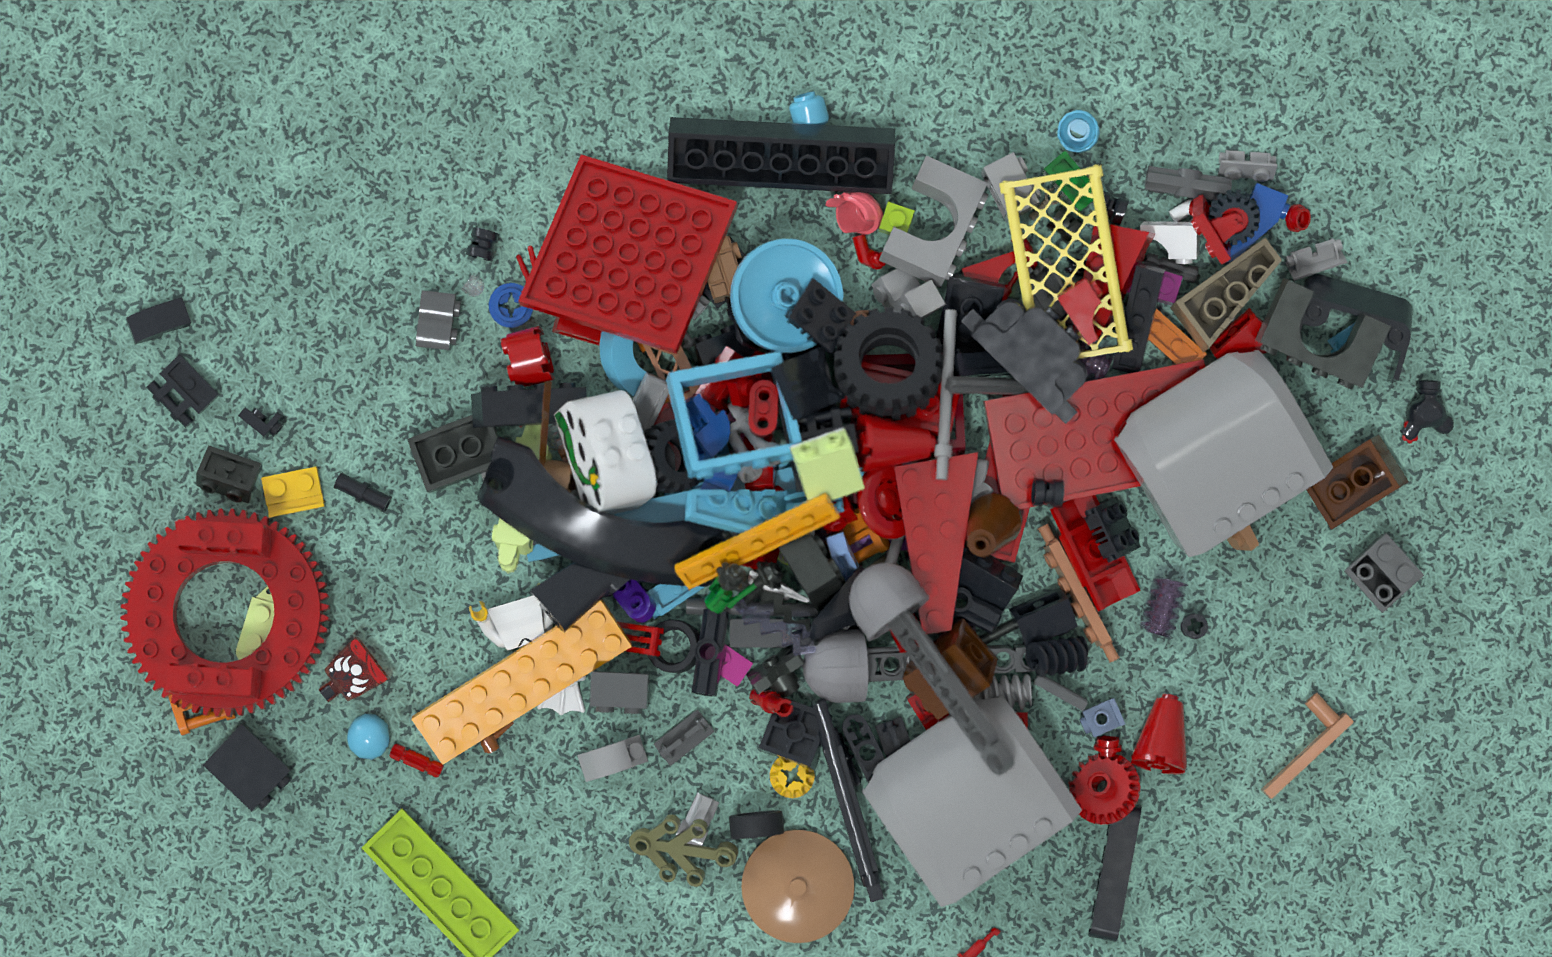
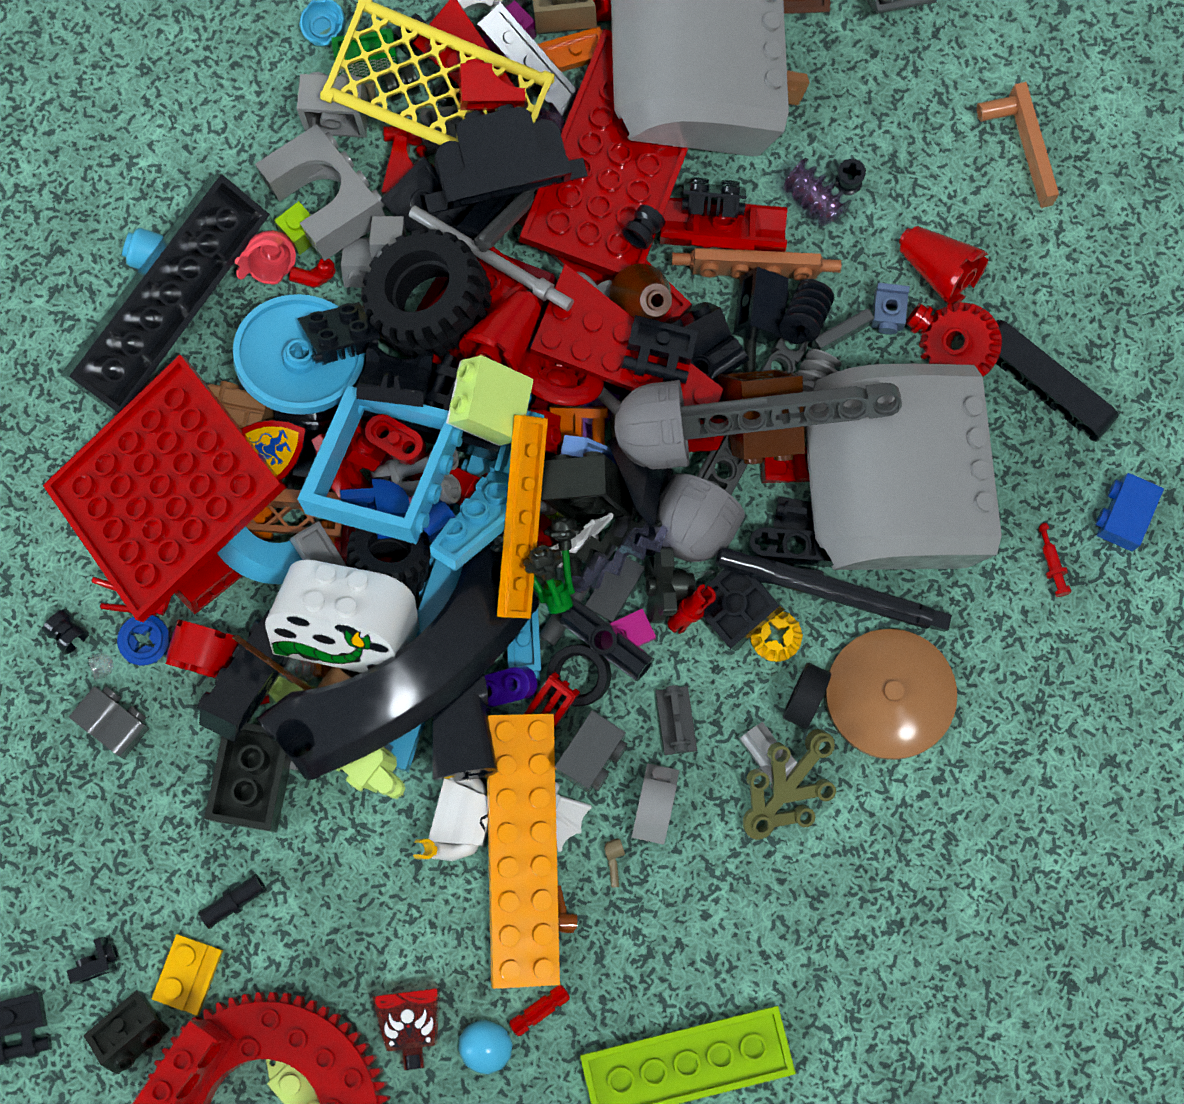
camera: 60 degrees left, 10 degrees down
(562, 747) = (613, 850): none -> dark tan hand
(711, 318) = (278, 443): none -> shield
(957, 564) = (662, 341): none -> black plate

